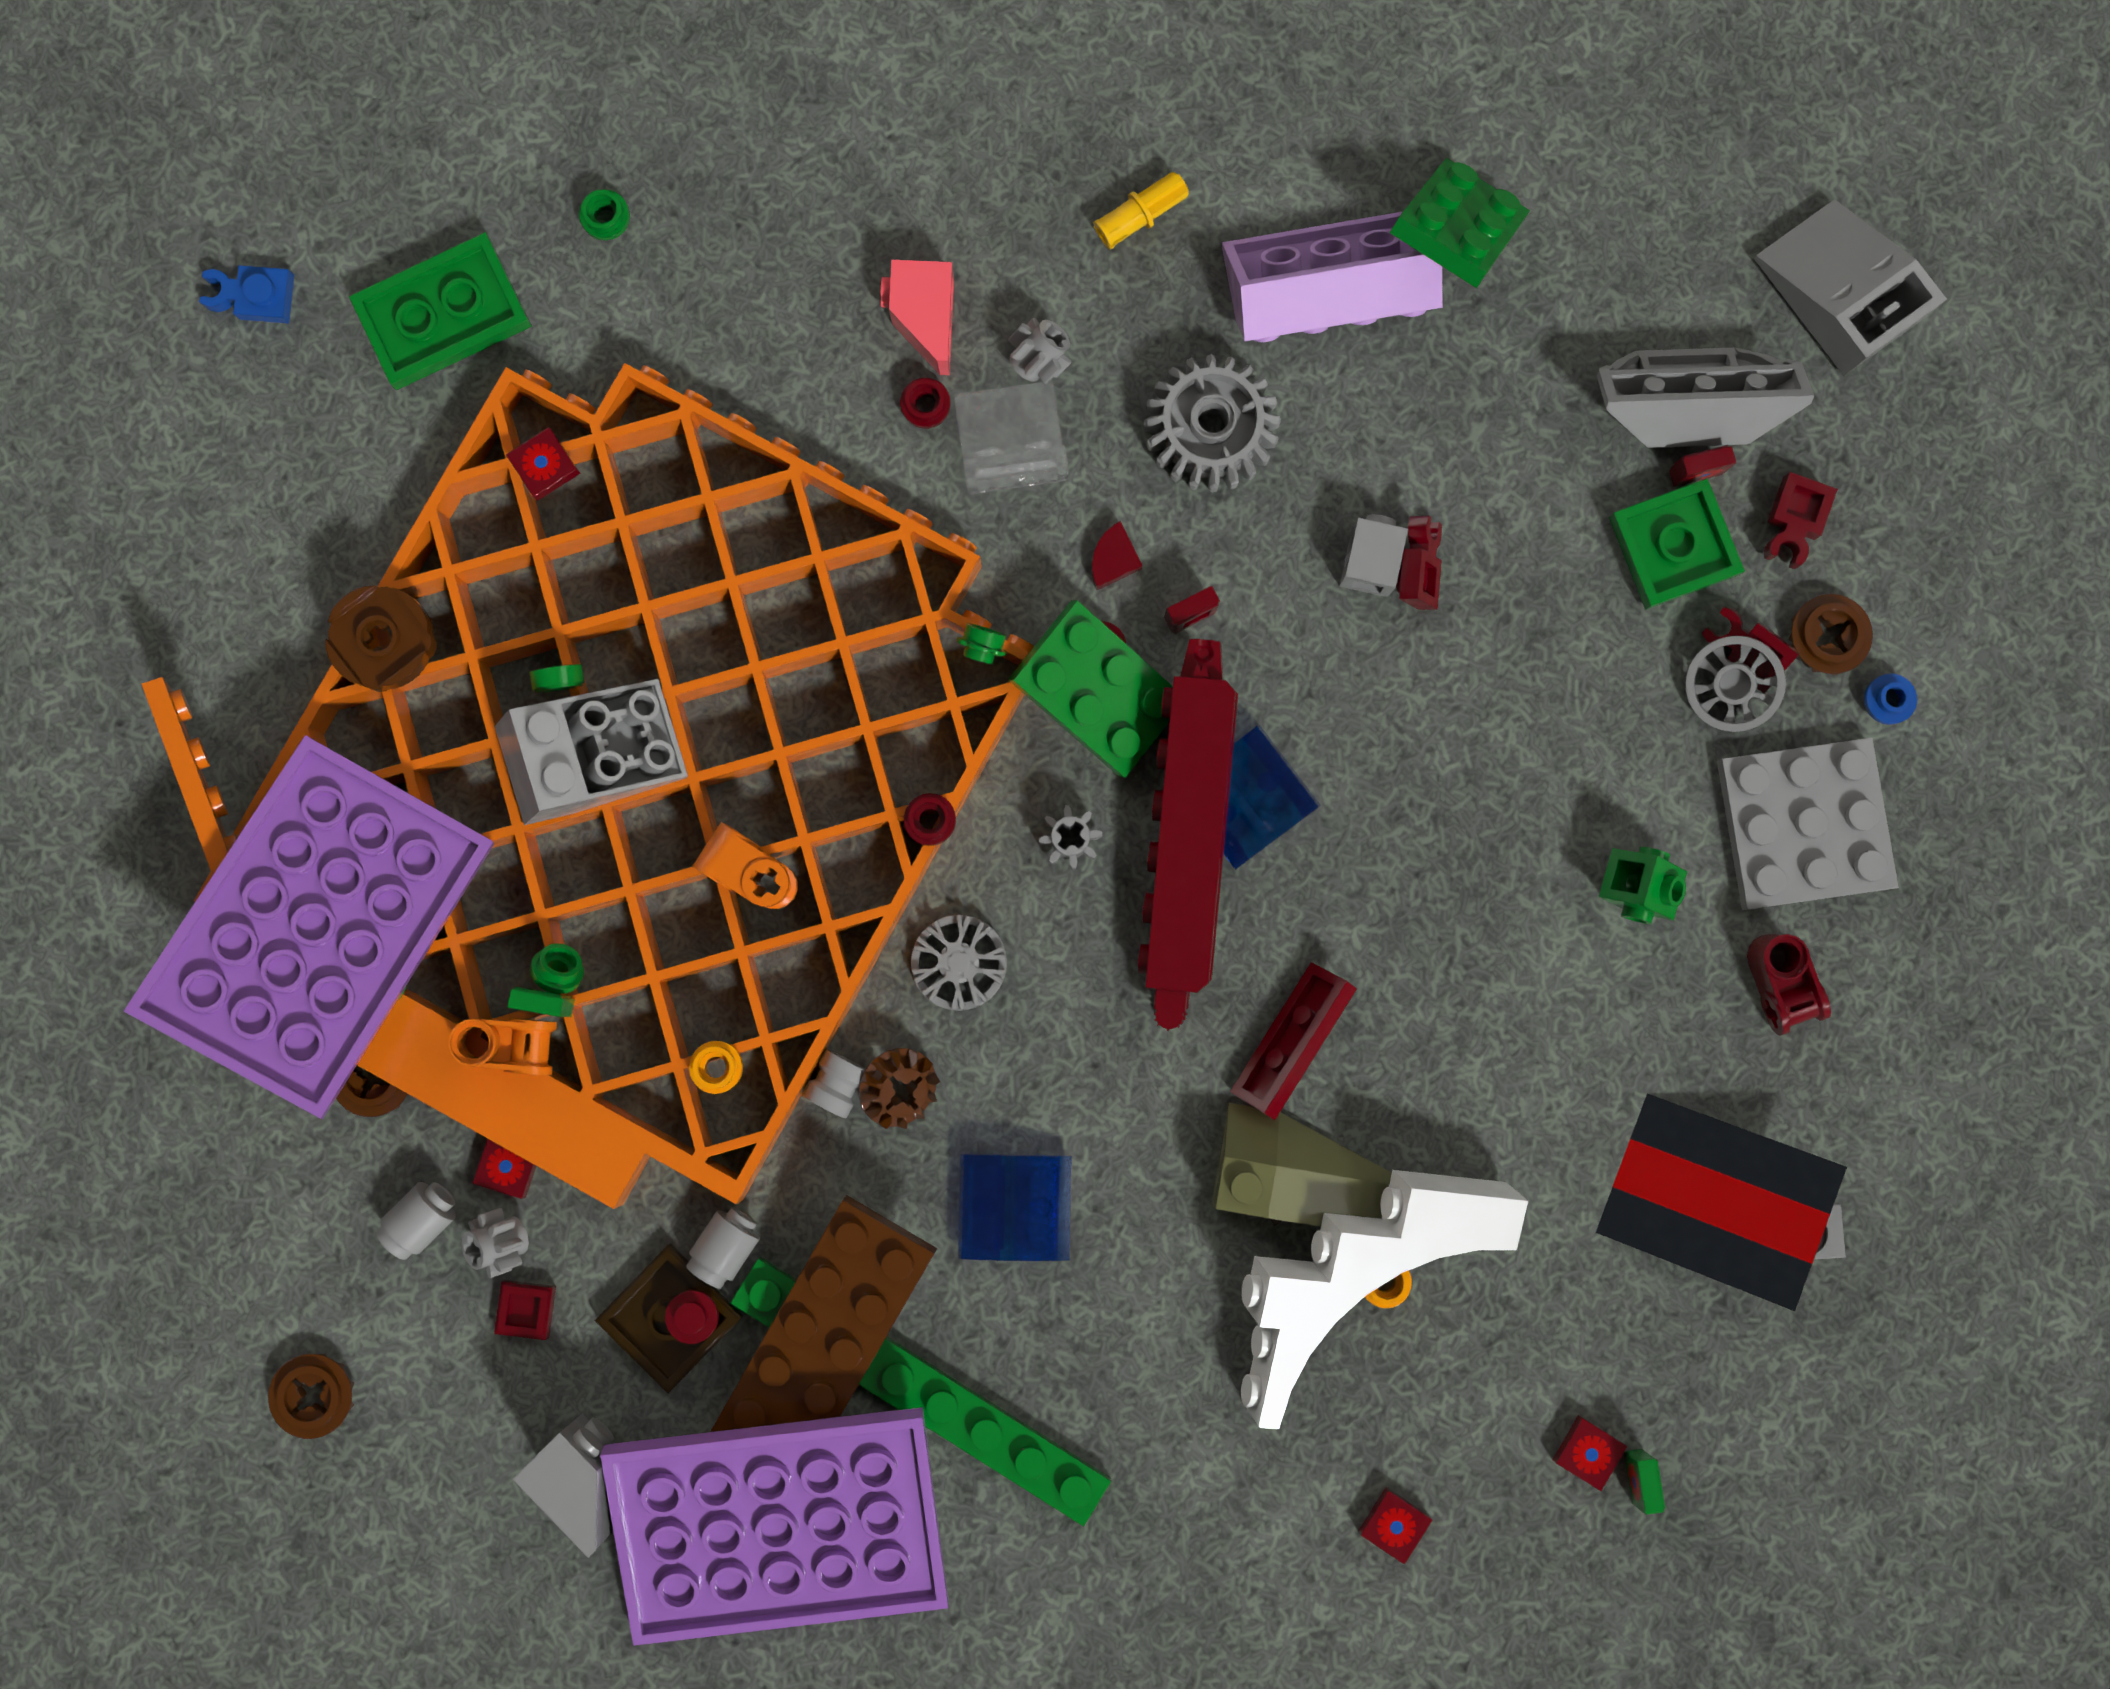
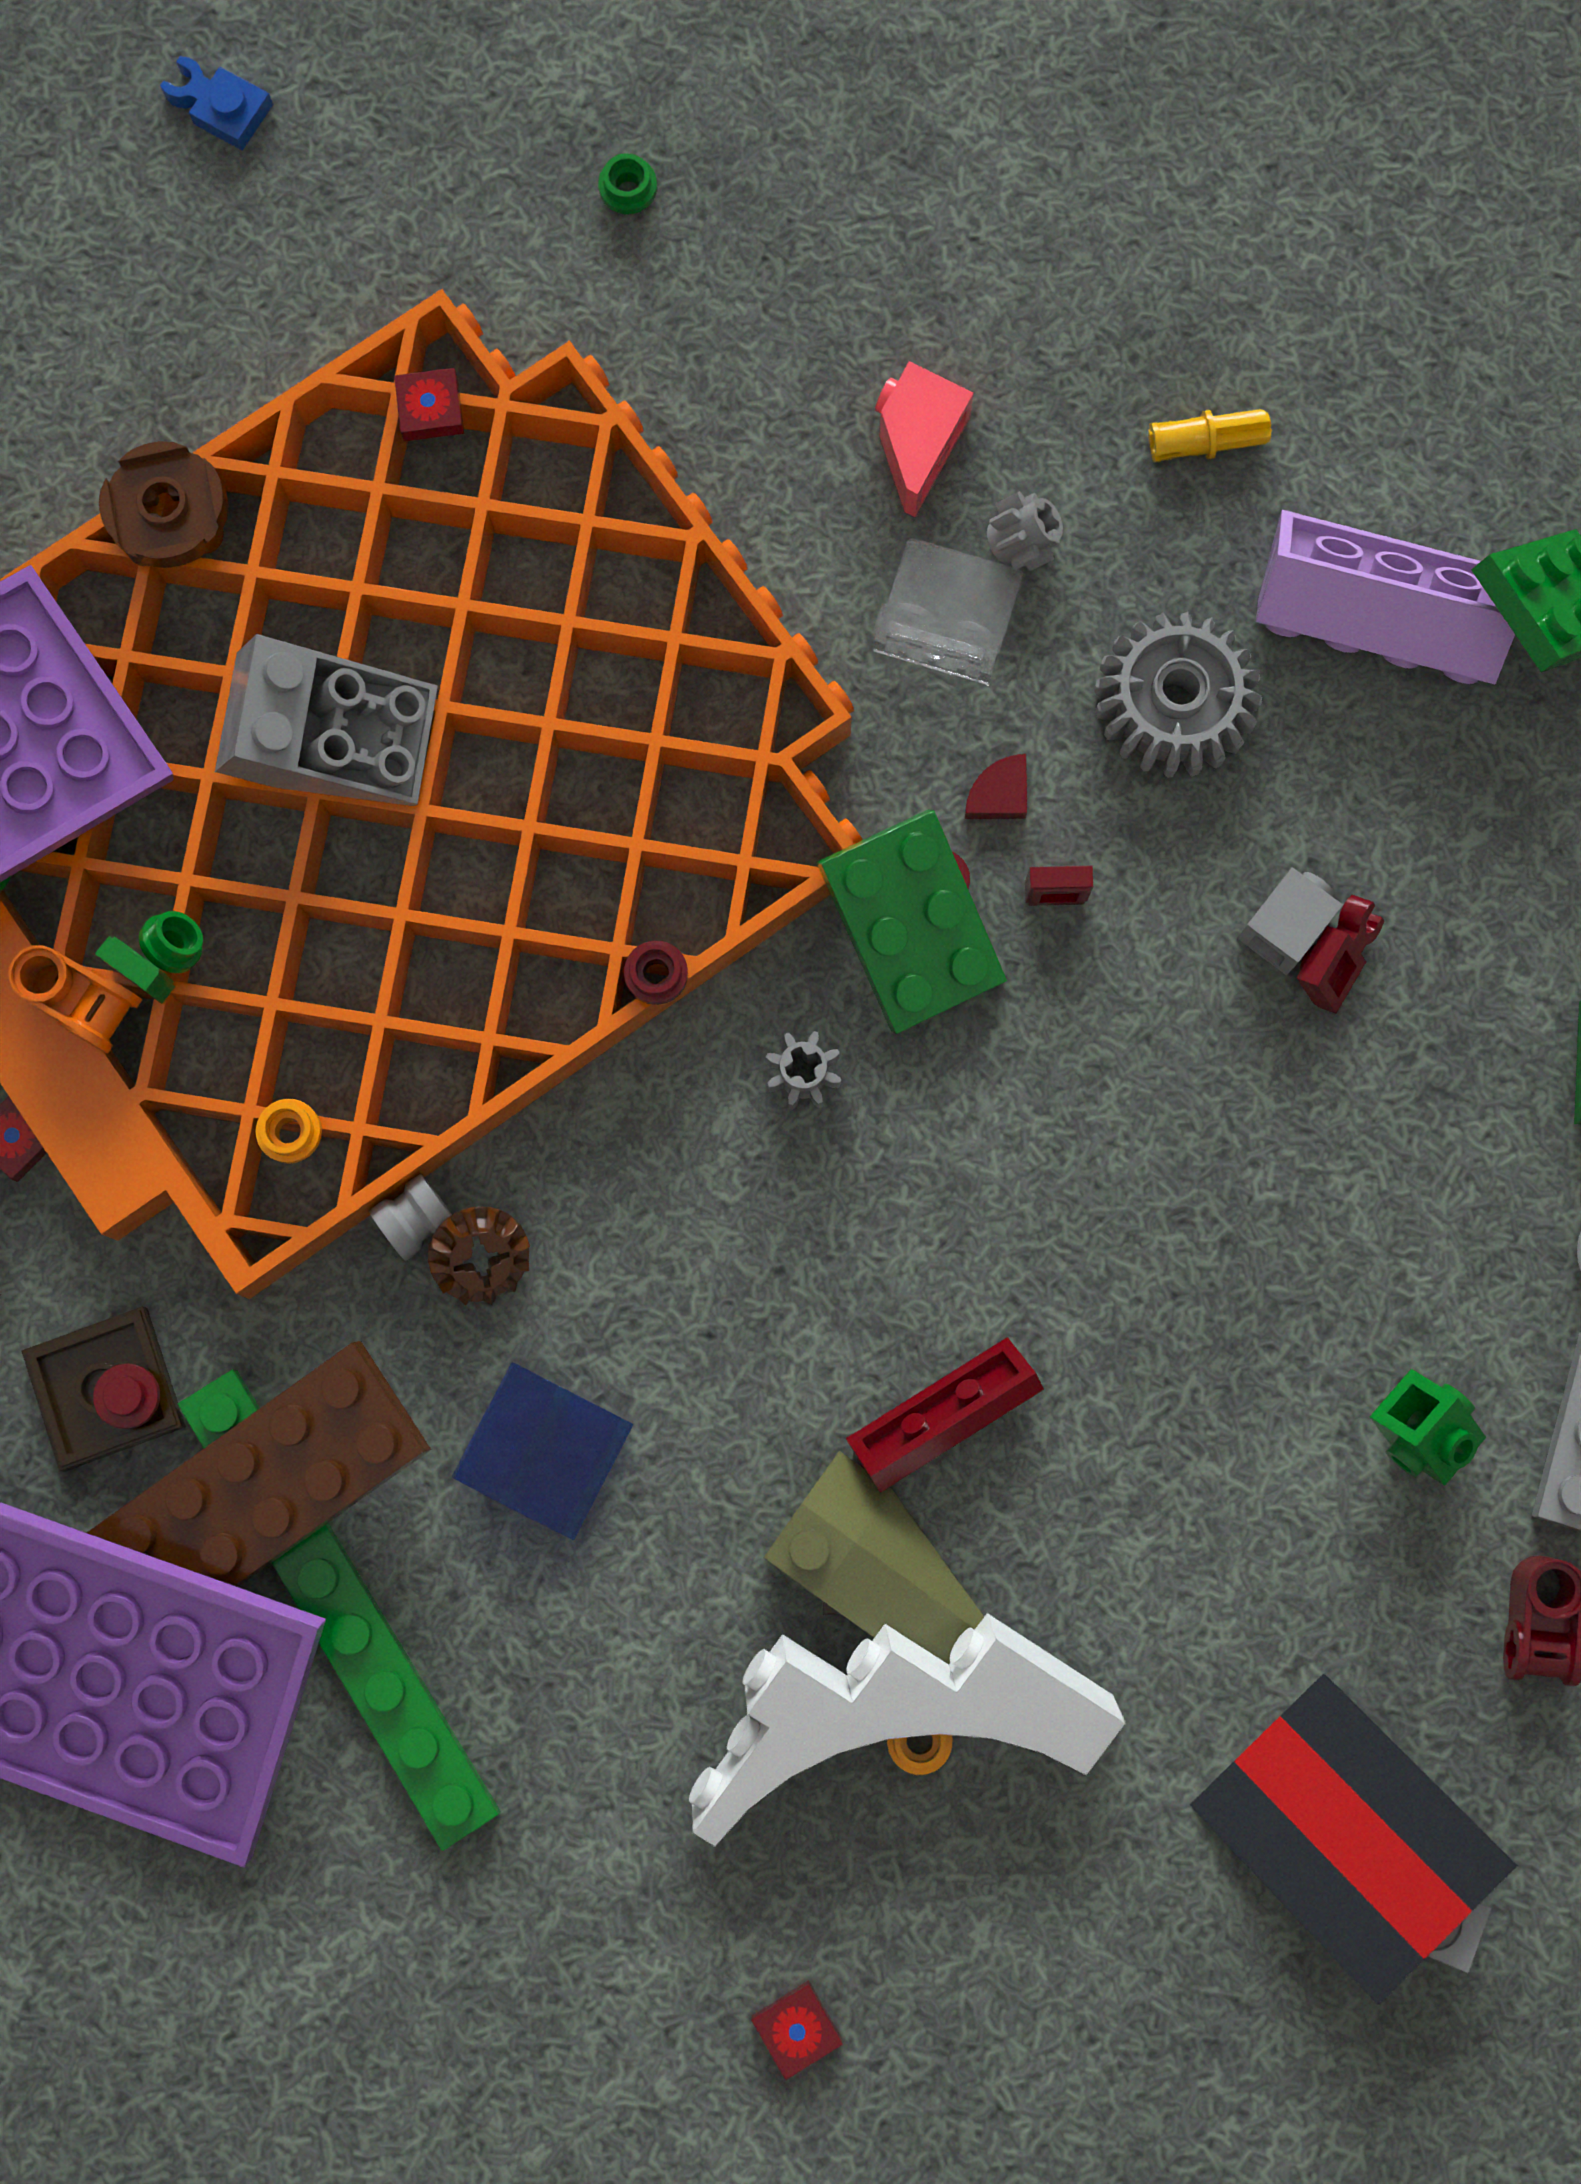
camera: 30 degrees right, 5 degrees down
(440, 311) = (404, 206): green plate -> none
(557, 678) = (328, 633): green tile -> none
(723, 1247) = (200, 1337): light grey brick -> none
(740, 865) = (426, 926): orange piece -> none
(925, 388) = (878, 516): dark red plate -> none
(958, 962) = (614, 1151): light grey wheel -> none
(982, 643) = (806, 808): green plate -> none
(1191, 832) = (938, 1127): dark red hinge -> none
(1263, 797) = (1023, 1120): clear blue slope -> none
(1589, 1453) = (1062, 2058): dark red tile -> none
(1644, 1481) = (1110, 2123): green tile -> none

